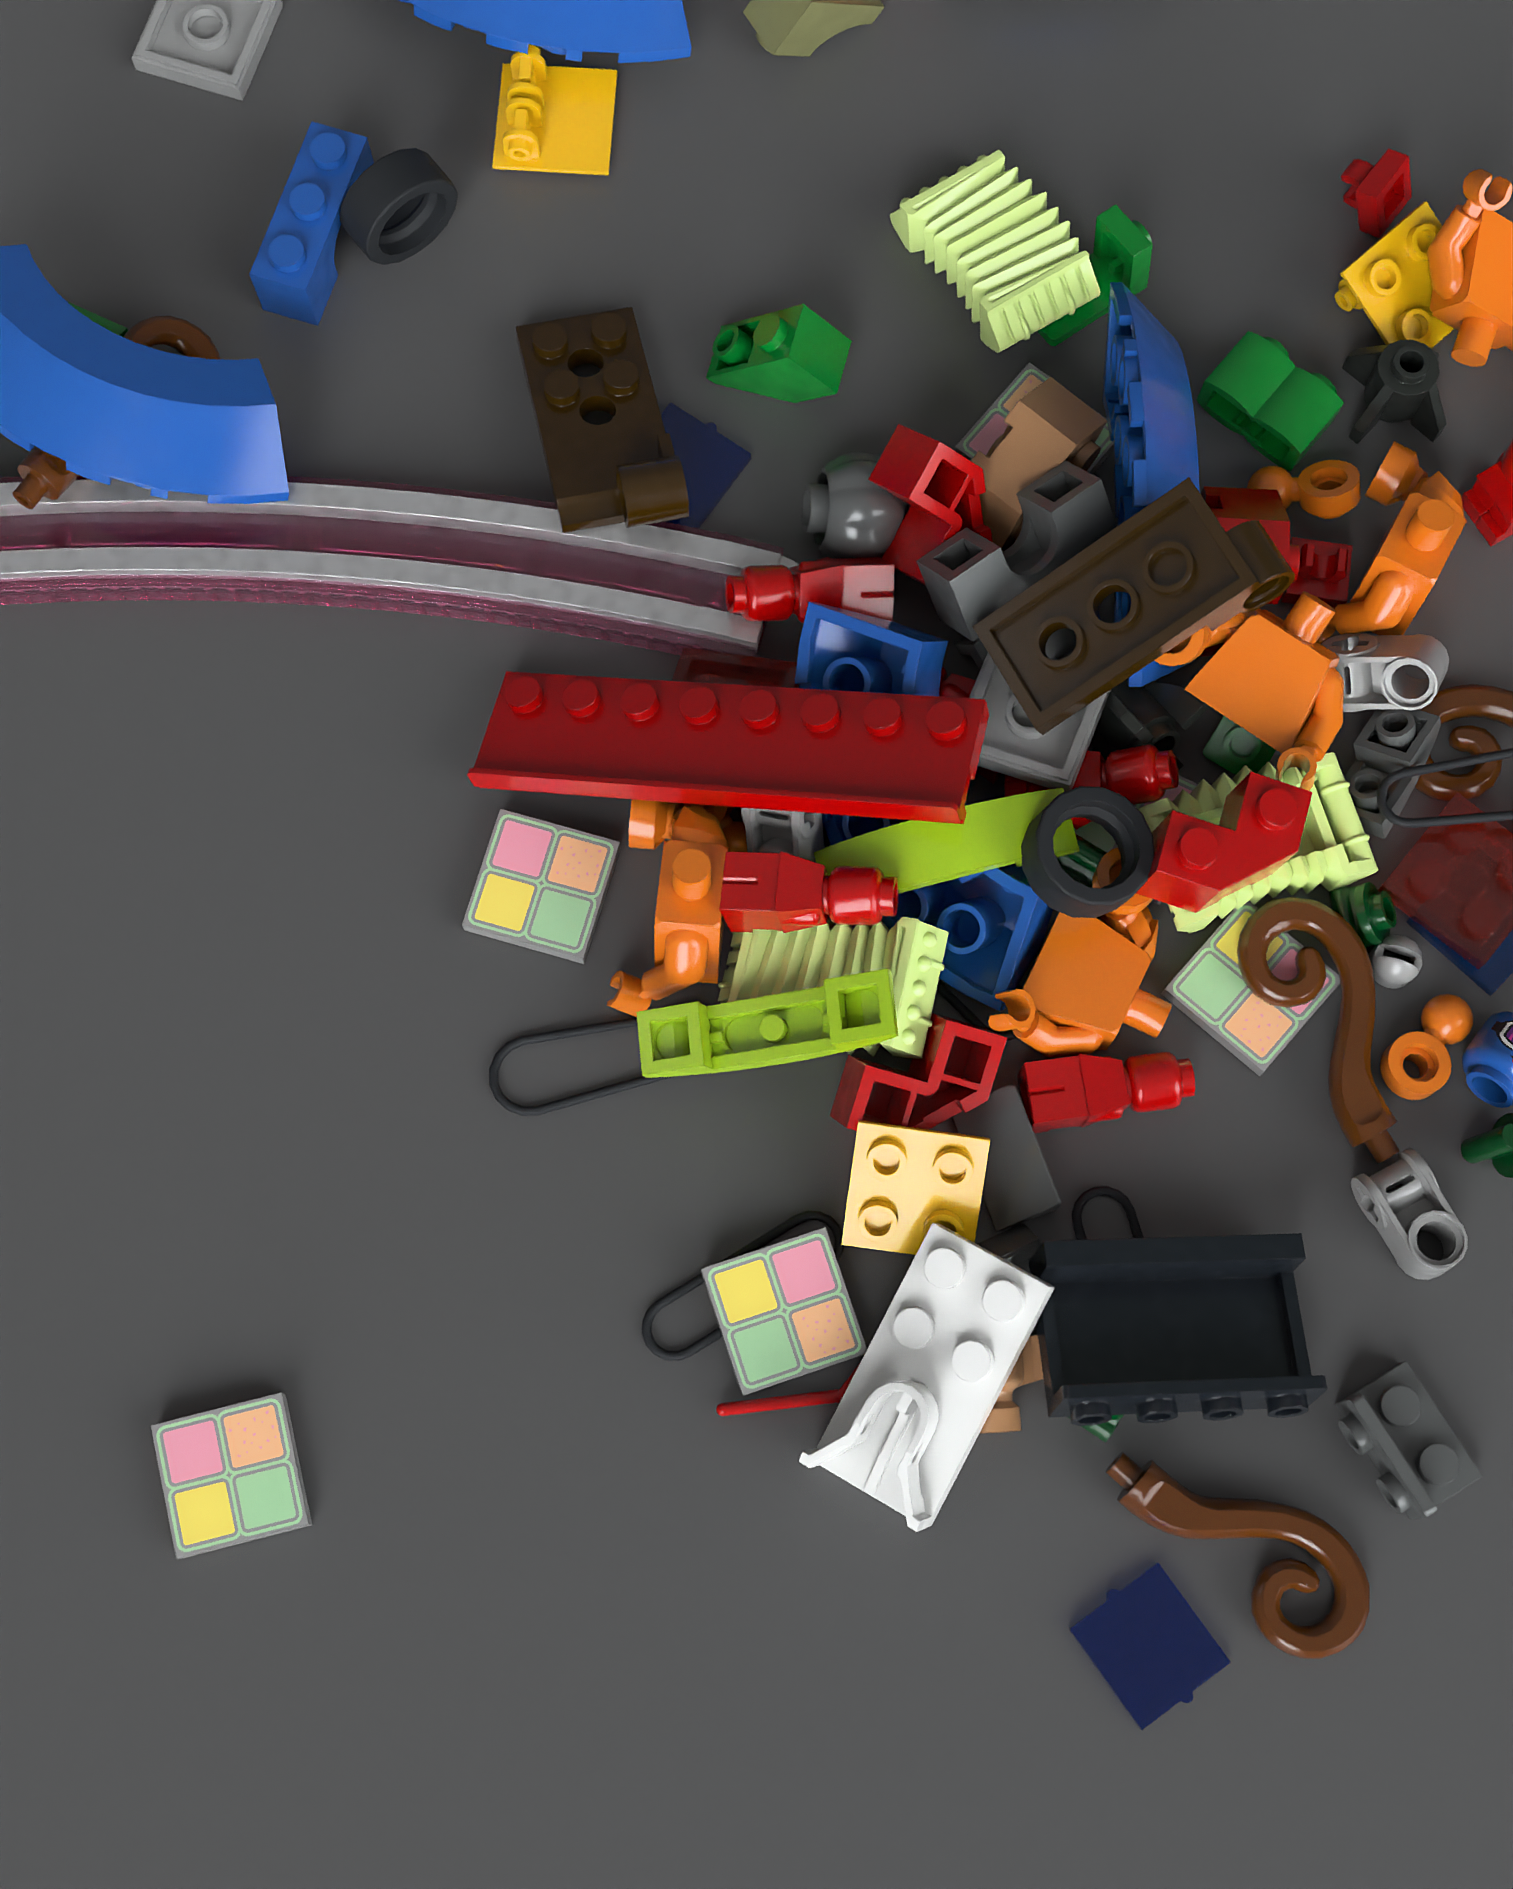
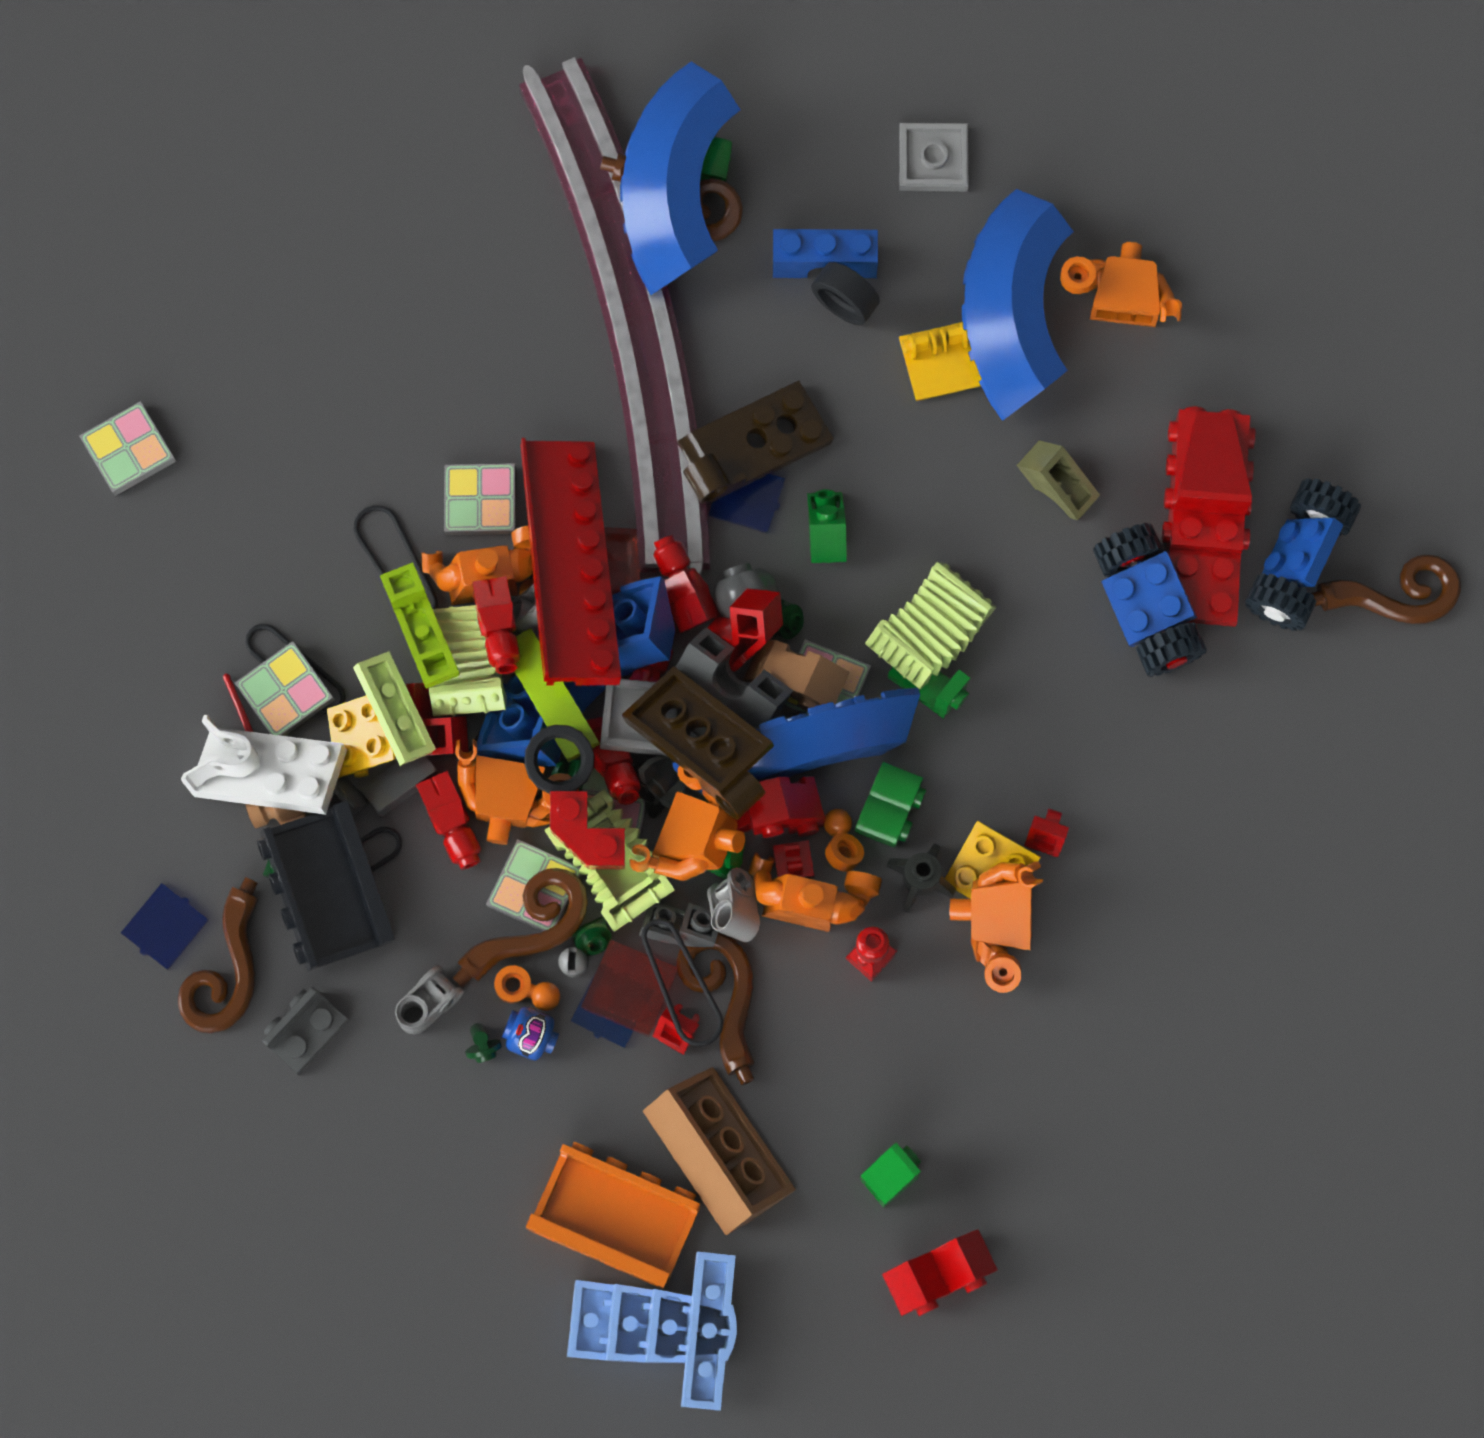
camera: 75 degrees right, 0 degrees up
(905, 1108) = (394, 708): none -> yellowish green plate

